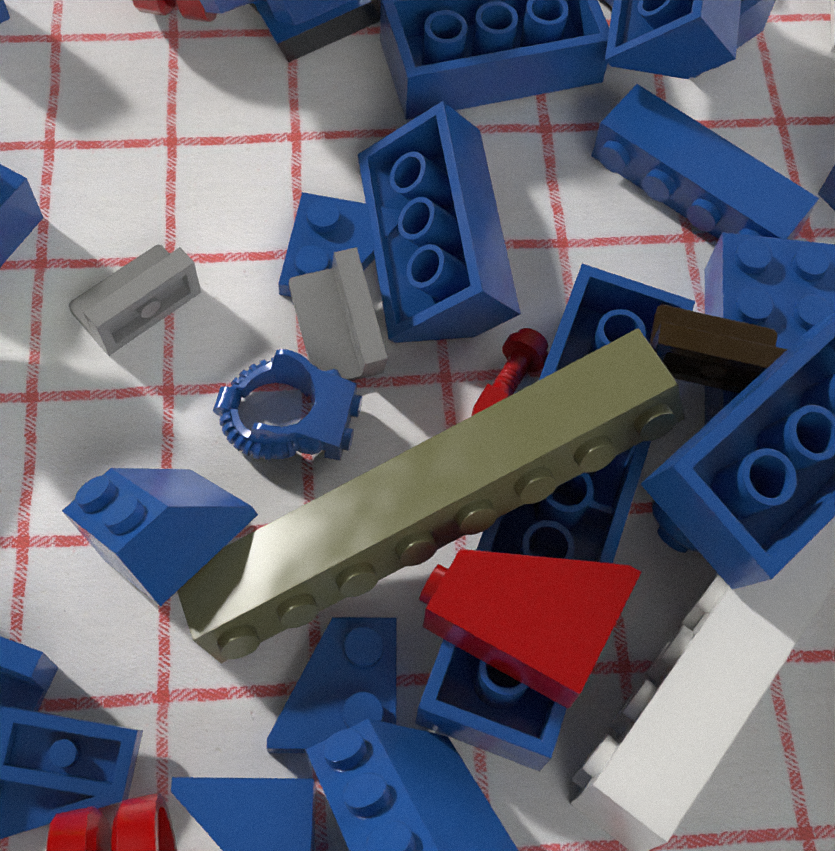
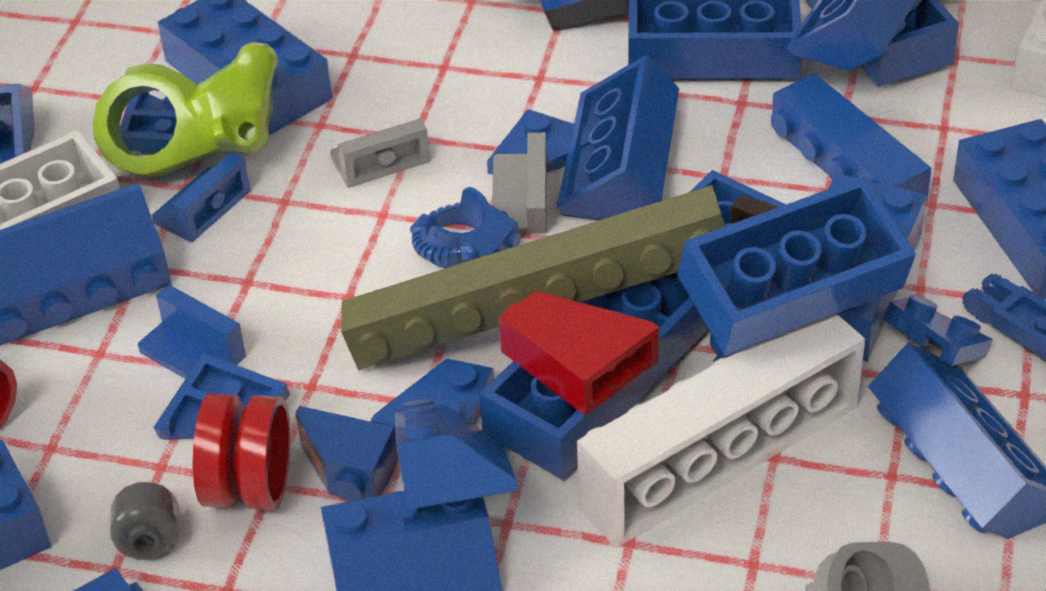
camera: 25 degrees right, 20 degrees down
(157, 524) = (338, 269): blue slope -> none

